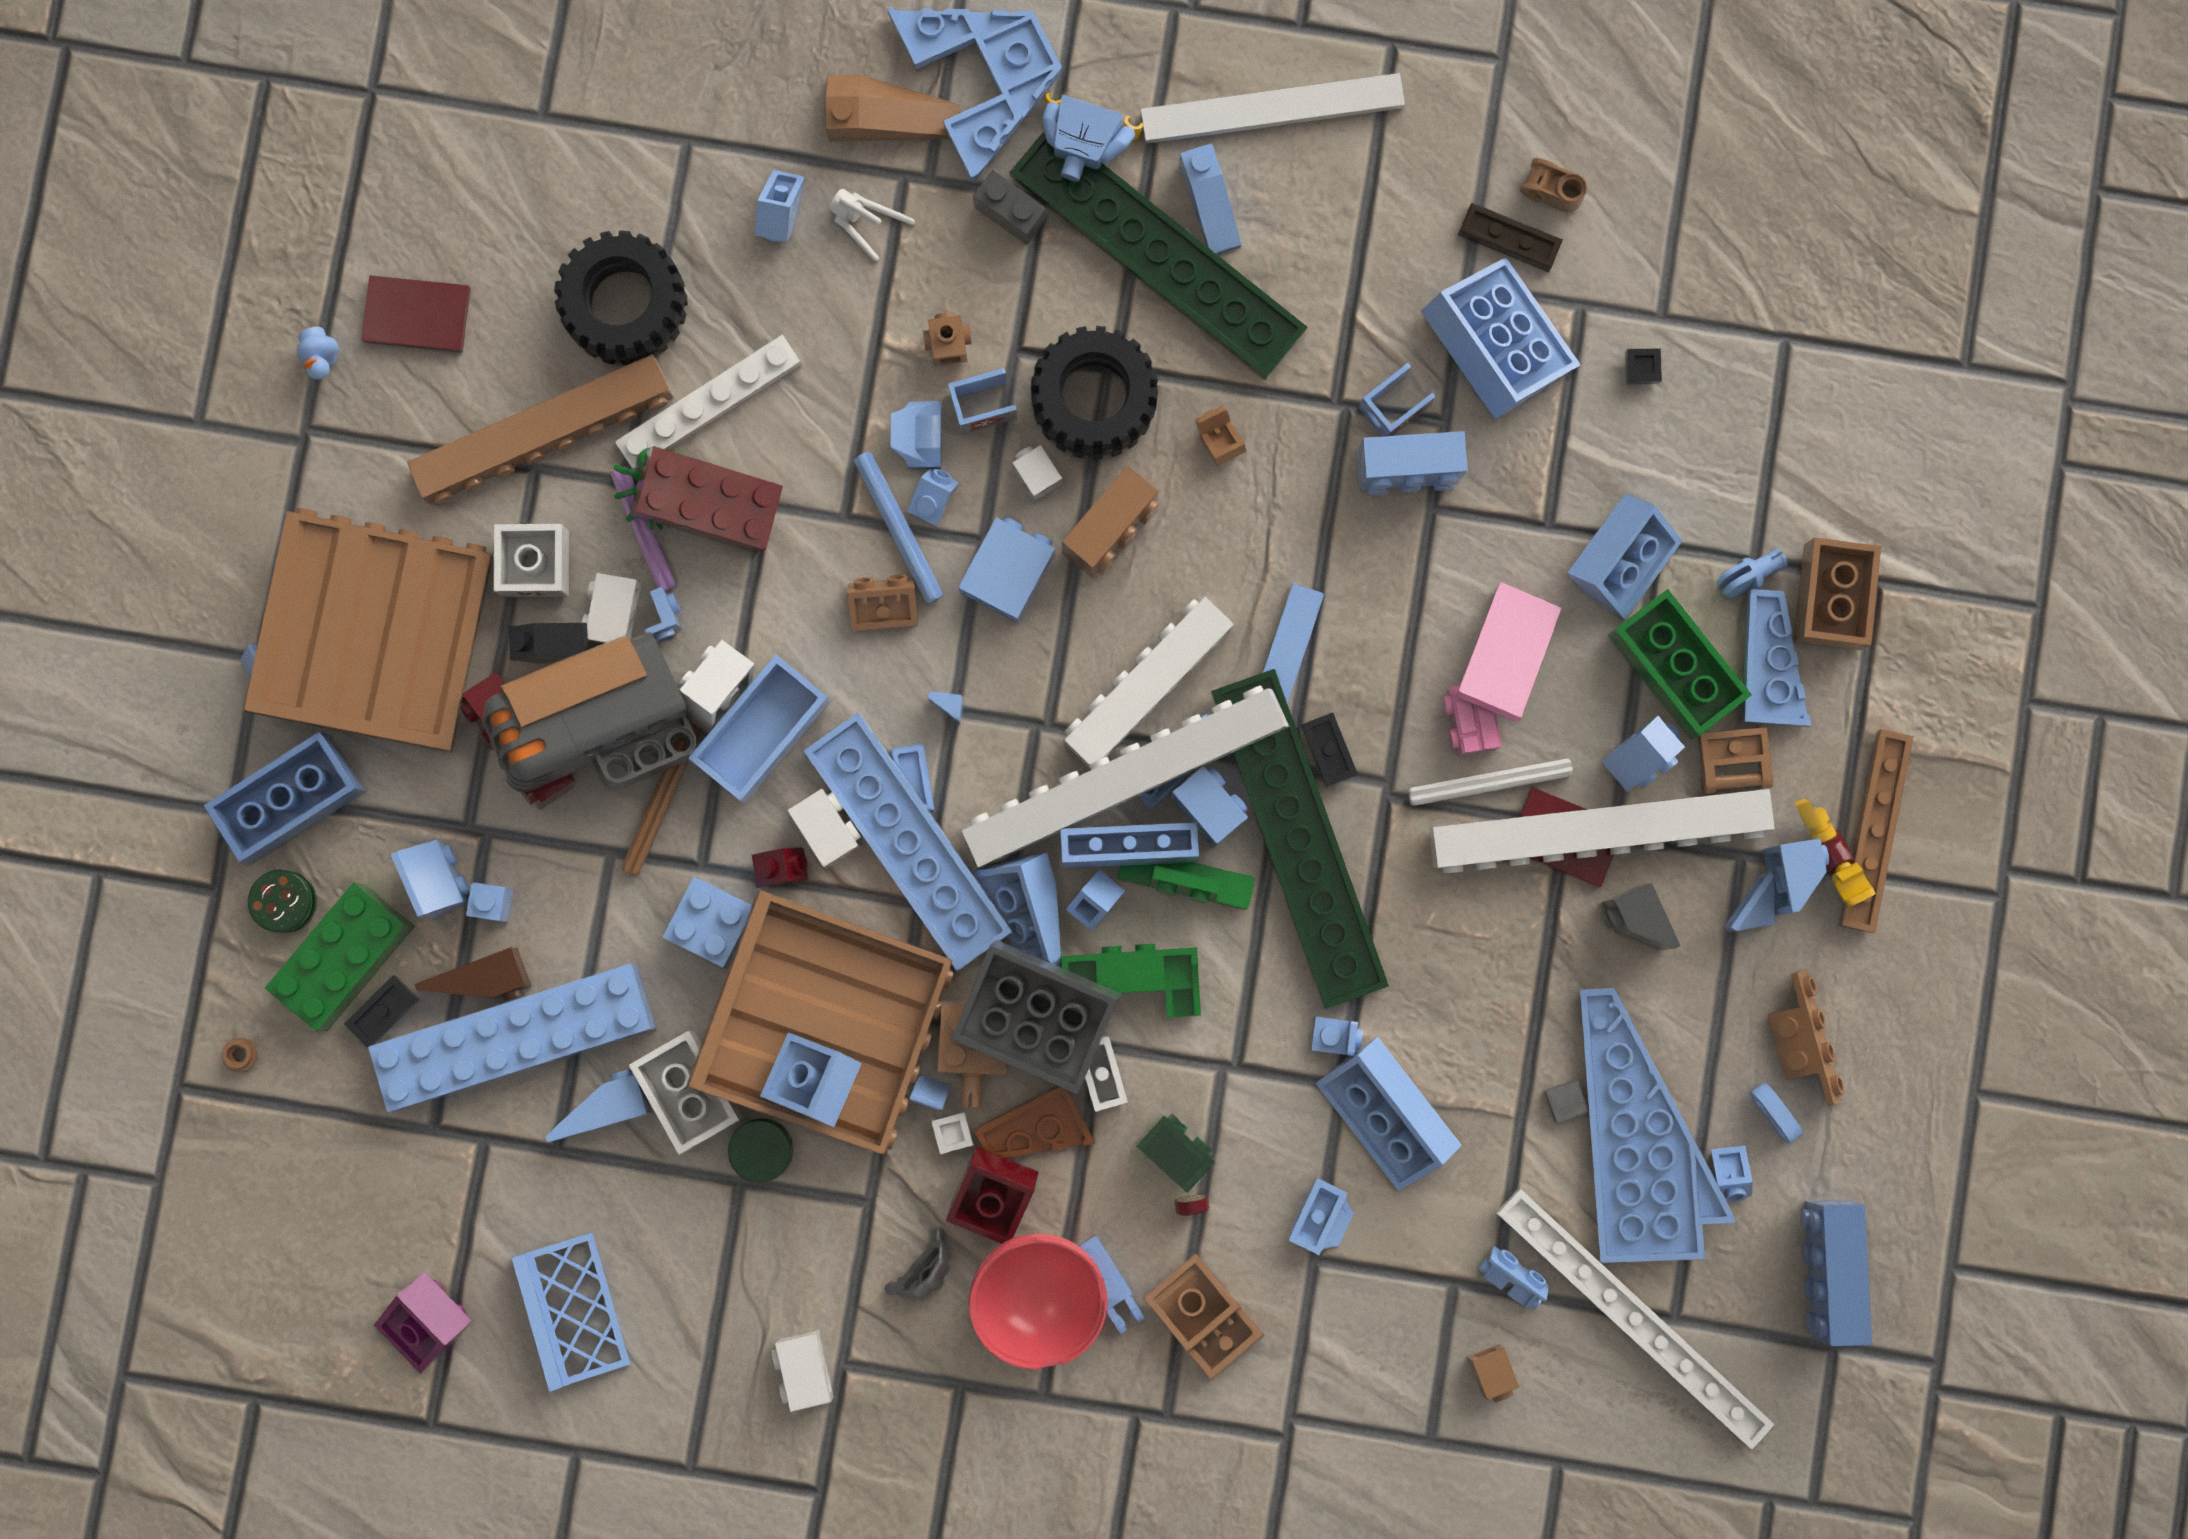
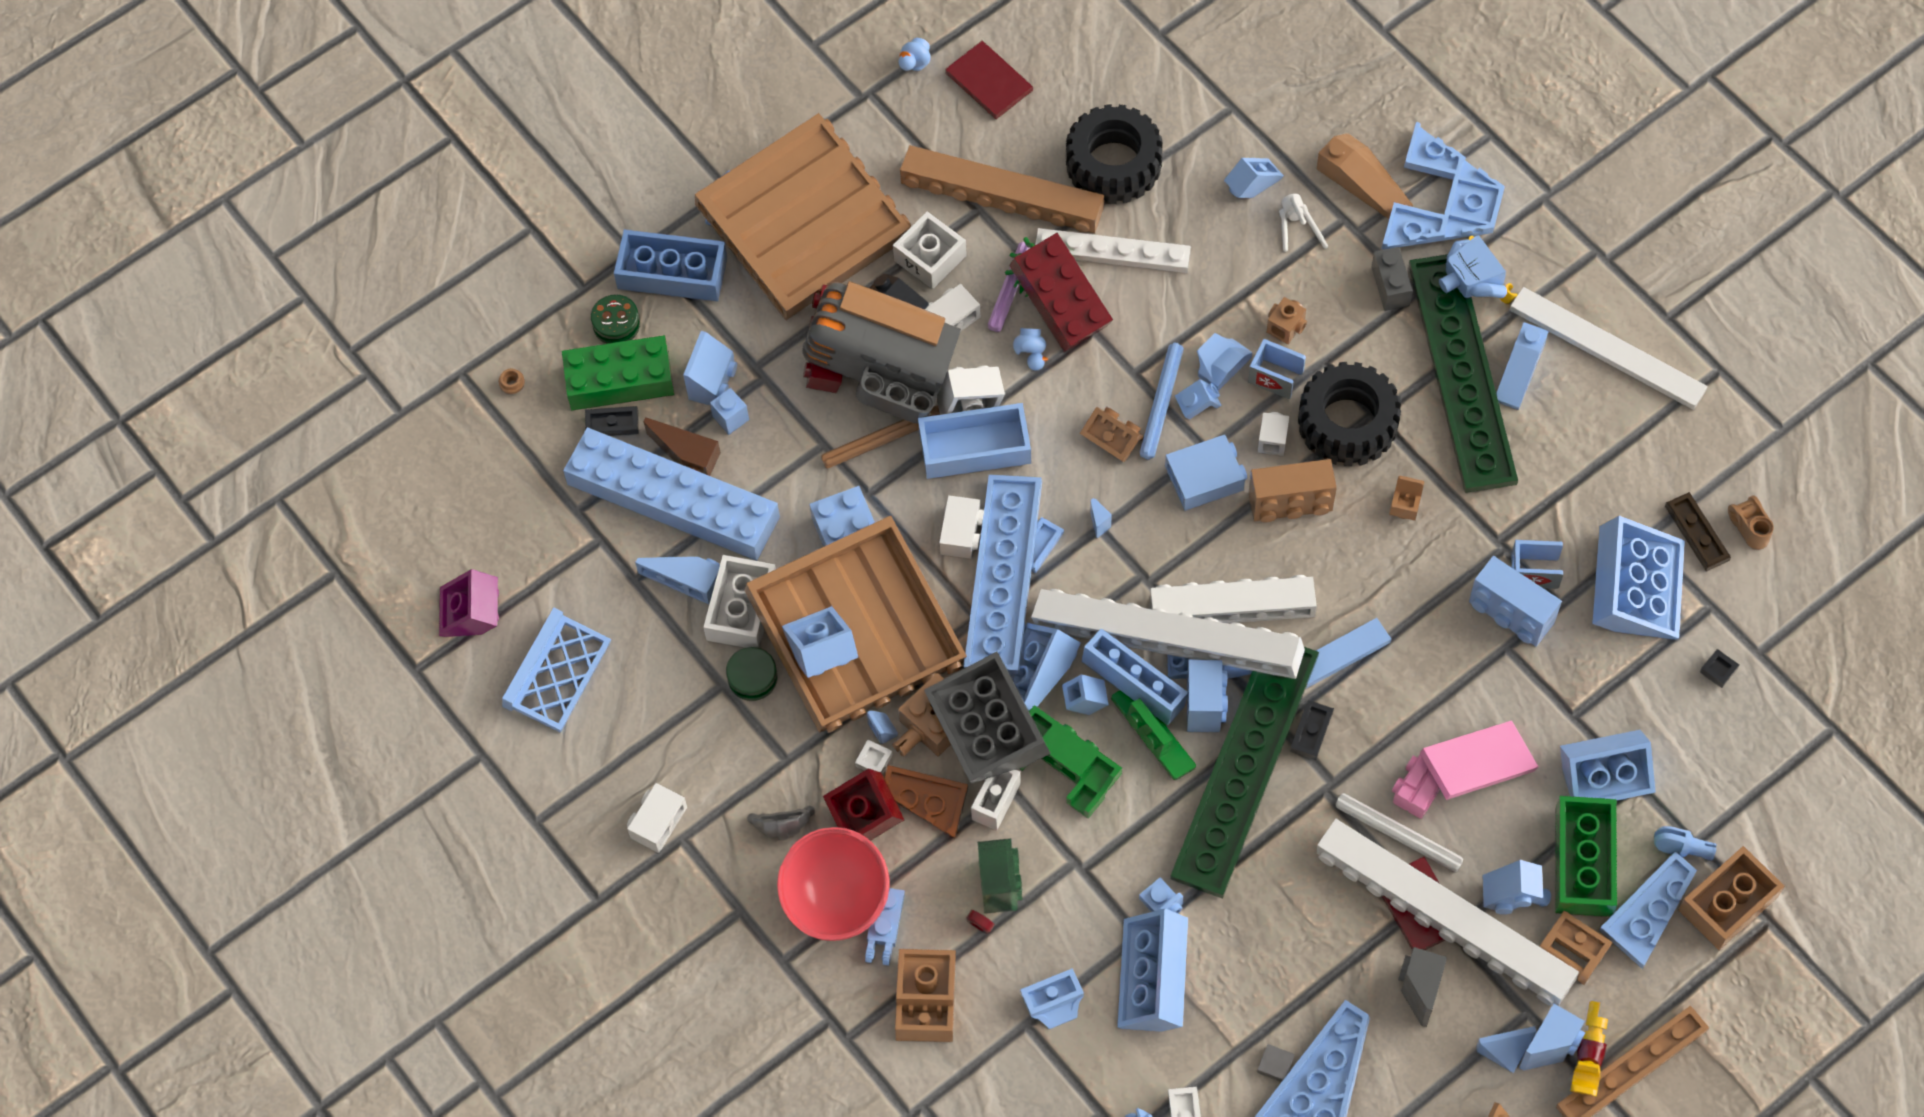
camera: 50 degrees right, 20 degrees down
(667, 608) = (976, 346): light blue bracket -> none
(720, 574) = (1031, 342): none -> light blue animal
(780, 867) = (916, 527): dark red bracket -> none

